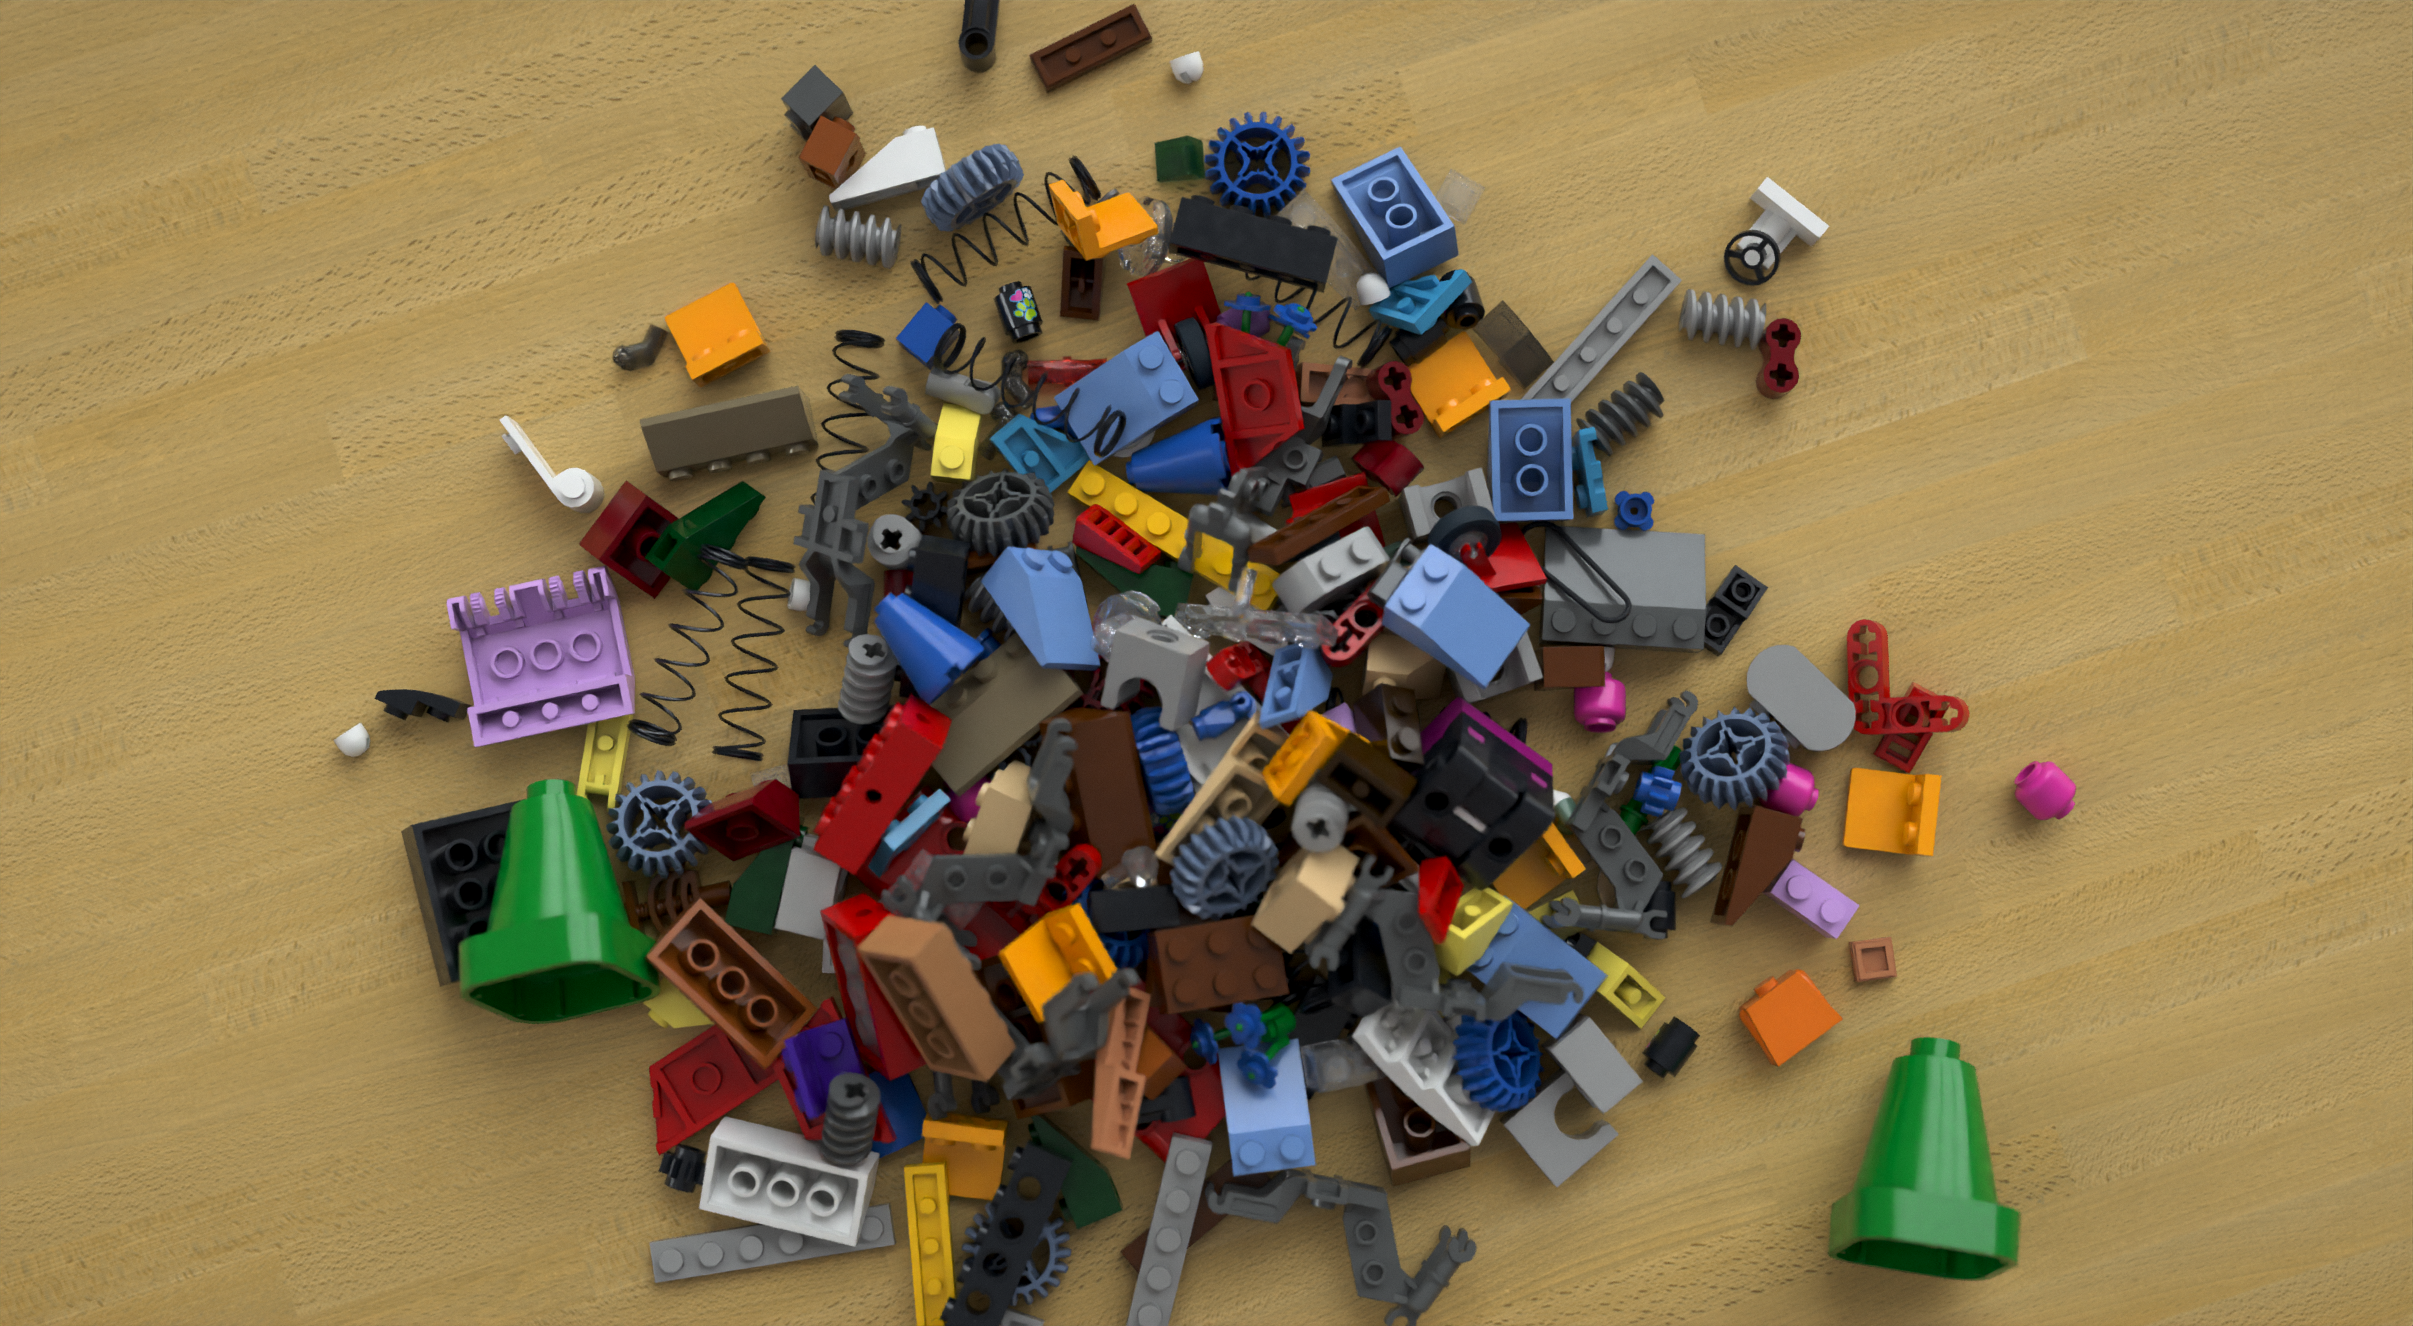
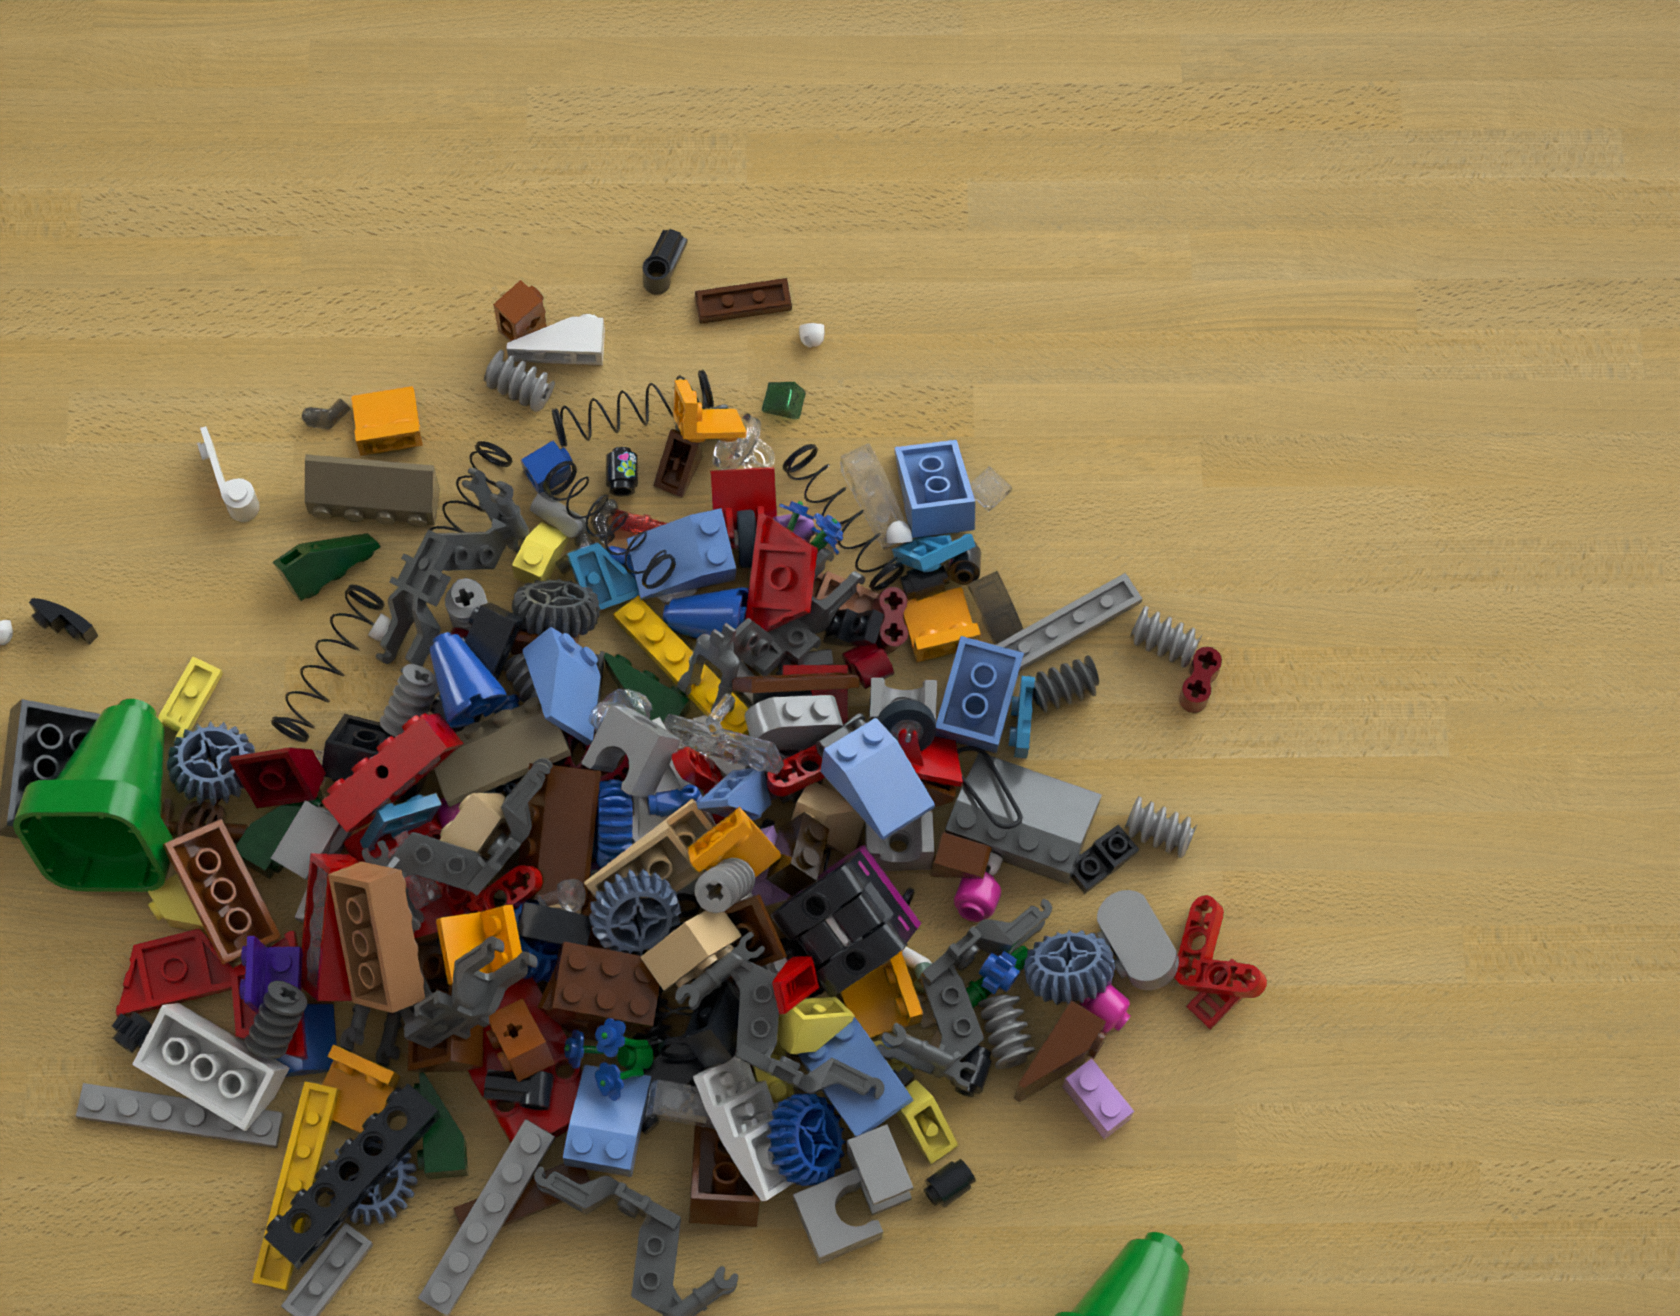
camera: 15 degrees right, 15 degrees down
(545, 657) = (170, 611): lavender slope -> none
(627, 534) = (265, 541): dark red slope -> none
(654, 732) = (234, 695): black piece -> none
(811, 98) = (519, 265): dark grey brick -> none
(920, 497) = (499, 583): black gear -> none
(972, 187) = (617, 367): sand blue gear -> none
(1113, 540) = (632, 652): red slope -> none
(1116, 1083) = (496, 1041): nougat slope -> none
(1253, 243) = (815, 467): black brick -> none
(1278, 140) = (859, 405): blue gear -> none
(1366, 779) = (765, 871): dark brown brick -> none
(1642, 502) = (1049, 752): blue plate -> none
(1772, 232) = (1225, 587): white piece -> none
(1785, 553) = (1160, 827): none -> light grey piece
(1787, 1015) = (1051, 1186): orange torso -> none
(1872, 959) = (1136, 1166): nougat tile -> none
(1891, 812) = (1183, 1052): light orange bracket -> none
(2045, 790) = (1314, 1073): dark pink head -> none

